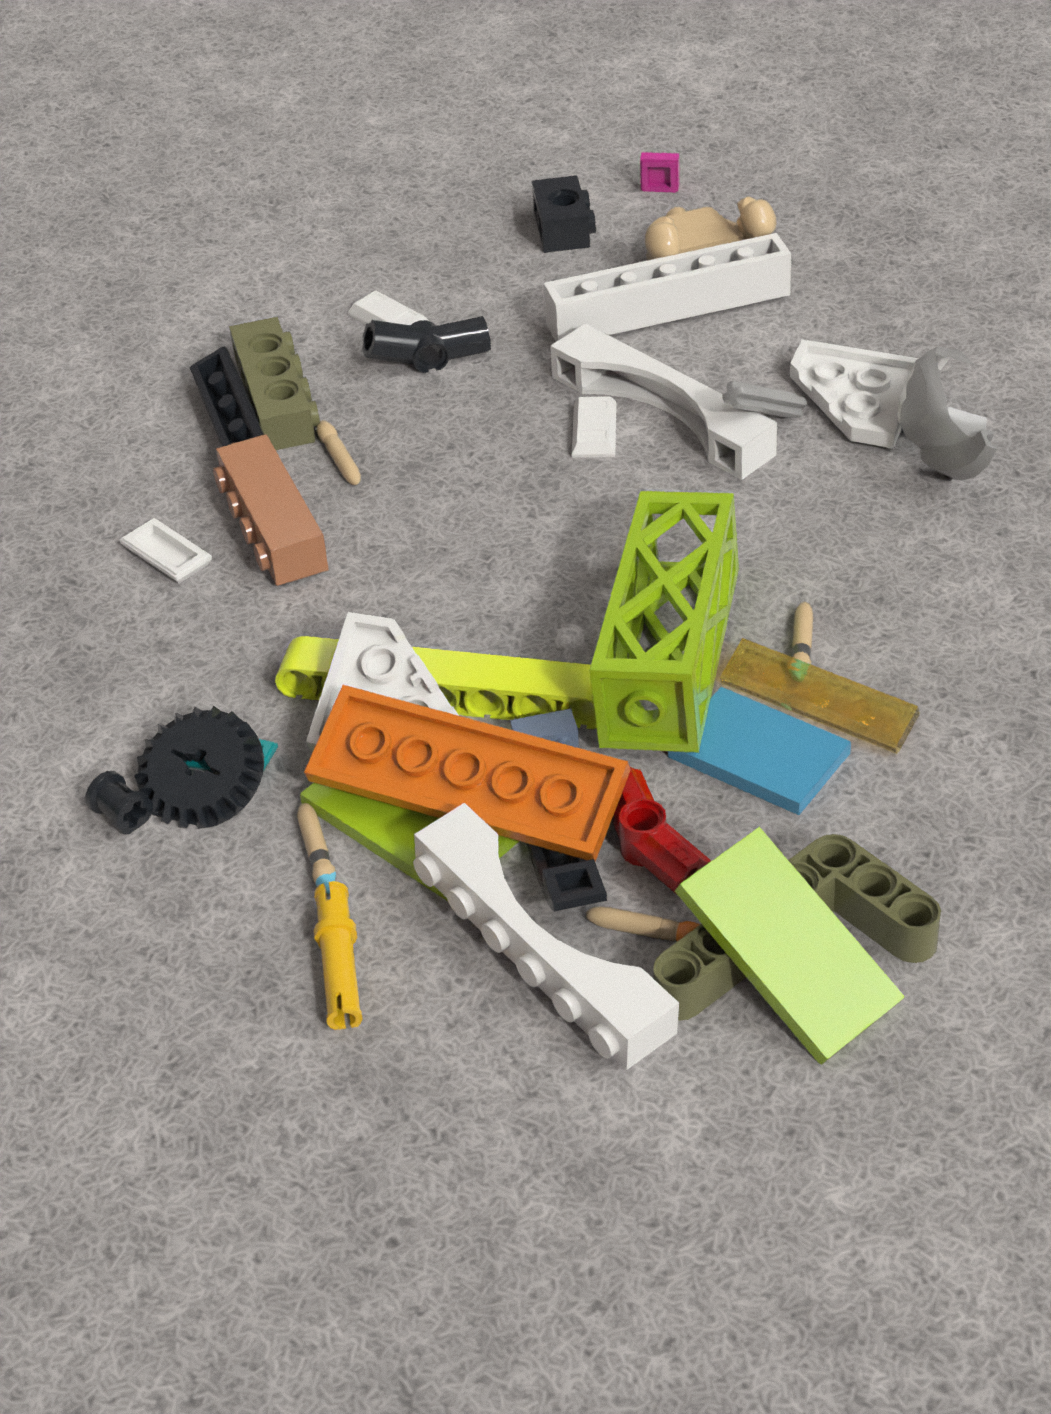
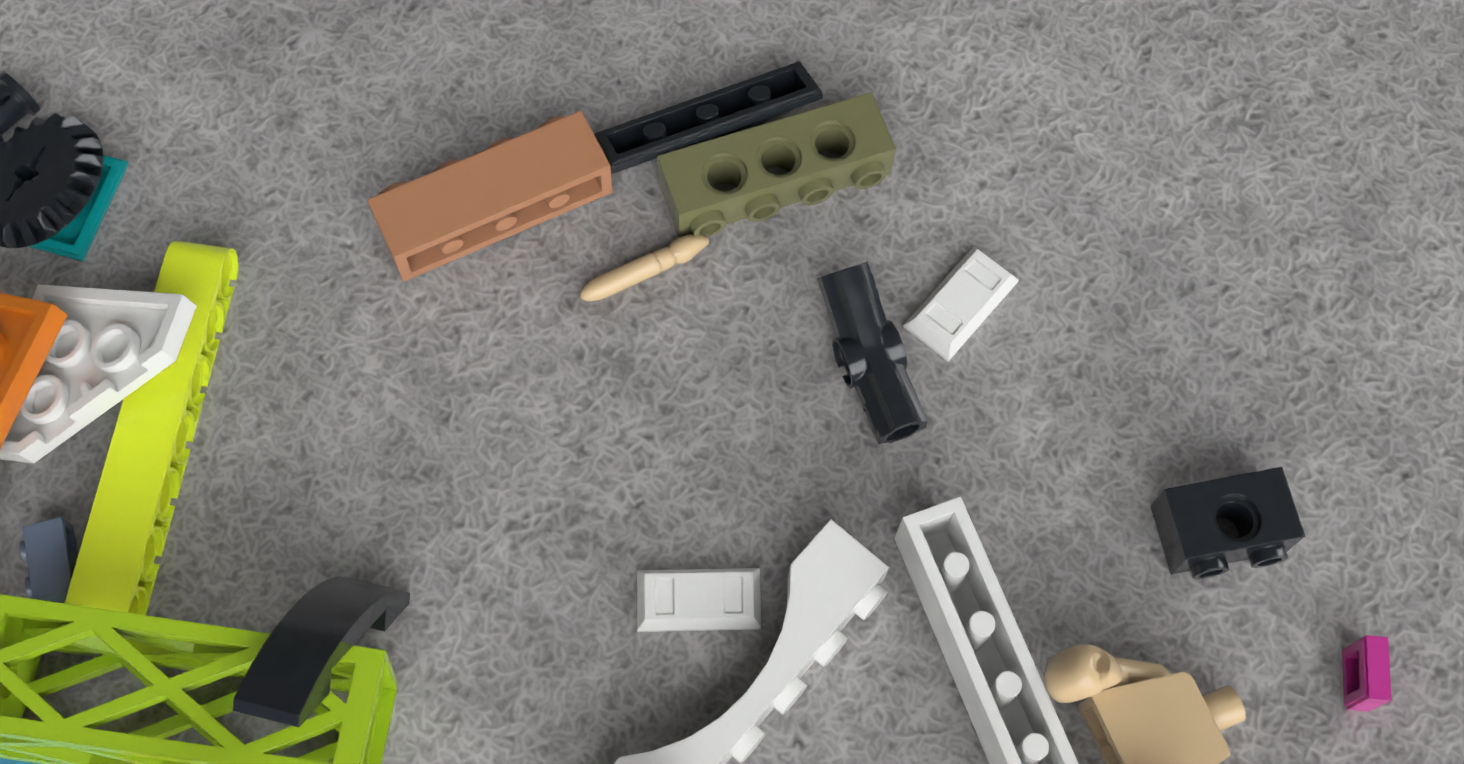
camera: 80 degrees right, 25 degrees up
(166, 550) = (449, 93): white tile -> none
(654, 501) = (297, 658): none -> black slope

